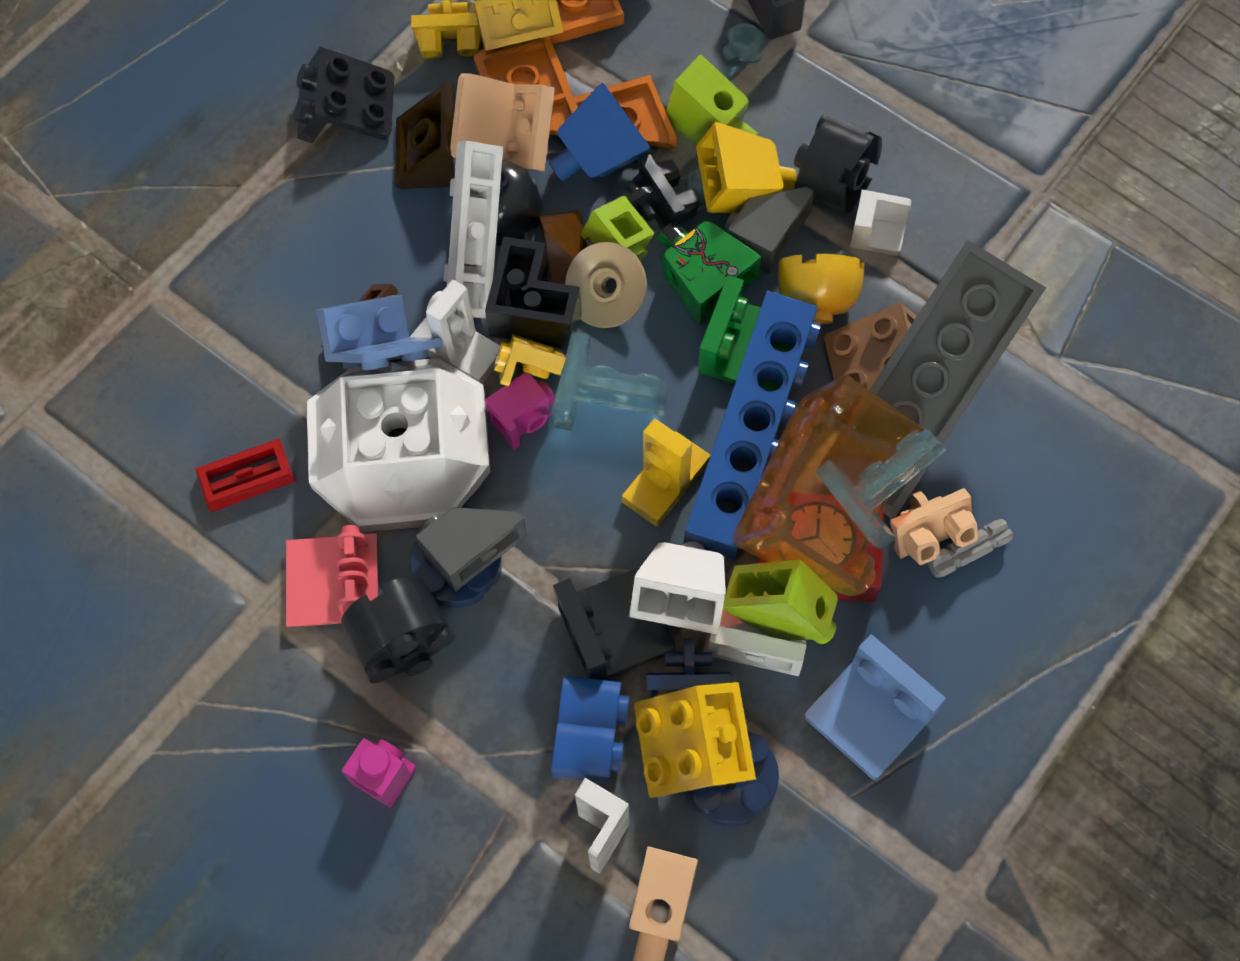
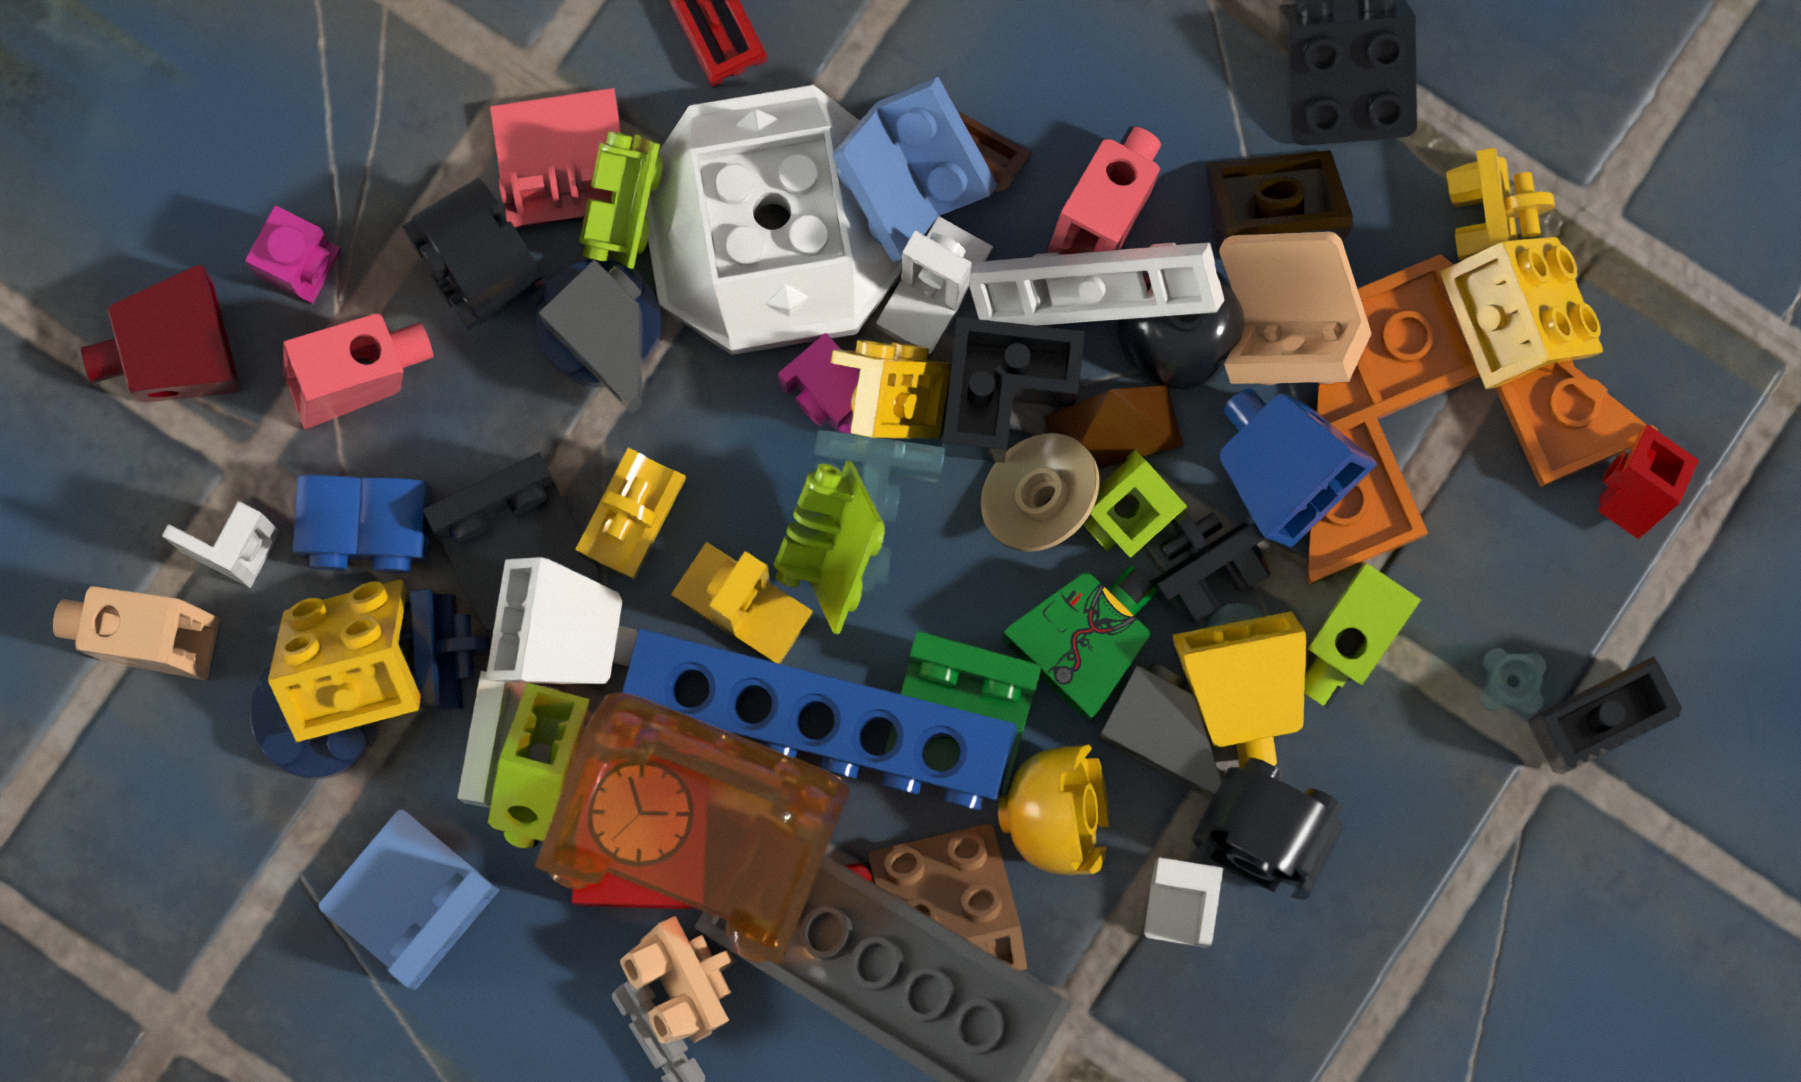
camera: 80 degrees right, 15 degrees up
(389, 531) = (631, 177): none -> lime hinge
(414, 229) = (1108, 195): none -> coral torso
(435, 870) = (168, 342): none -> dark red torso
(472, 730) = (328, 379): none -> coral torso
(599, 538) = (630, 513): none -> yellow hips
(635, 391) = (831, 540): none -> lime hinge
(880, 482) = (681, 860): clear light blue bracket -> none

